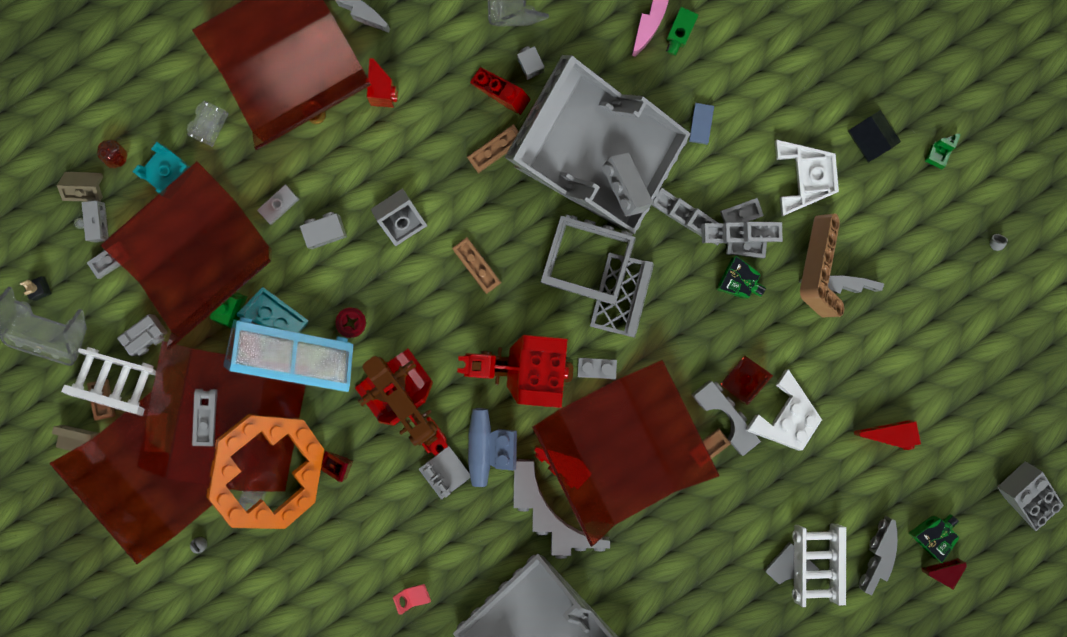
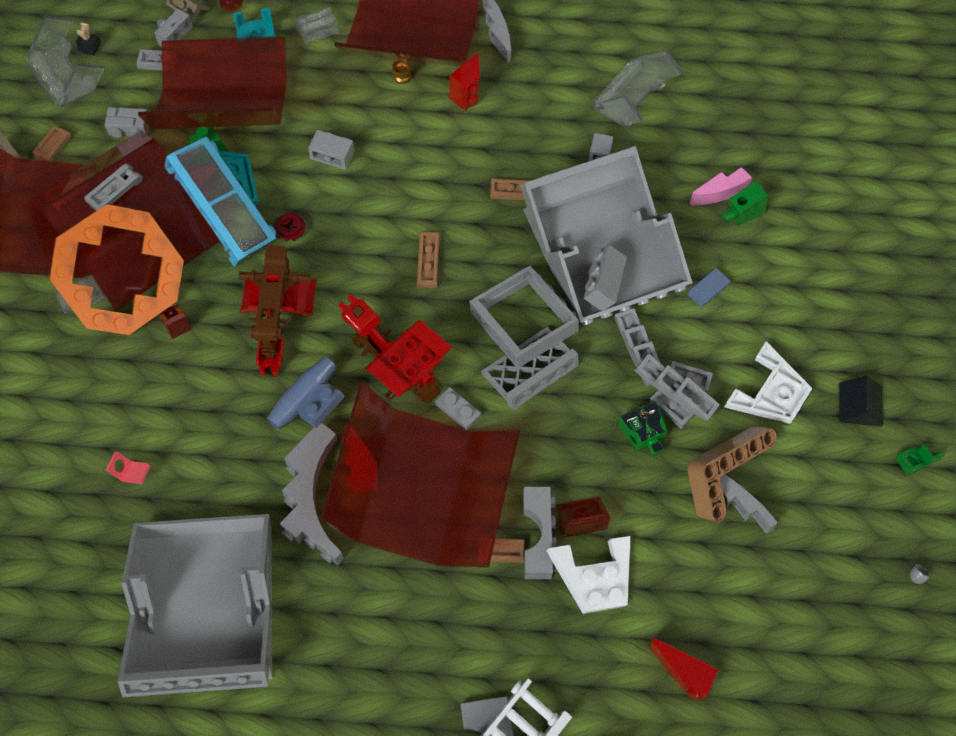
camera: 40 degrees right, 25 degrees down
(114, 399) = (60, 146): white fence -> none
(201, 544) = (12, 297): light grey hinge -> none
(278, 204) = (315, 111): light grey plate -> none
(398, 217) = (398, 181): light grey slope -> none
(445, 472) = (254, 392): light grey hinge -> none
(501, 90) = (559, 150): red slope -> none

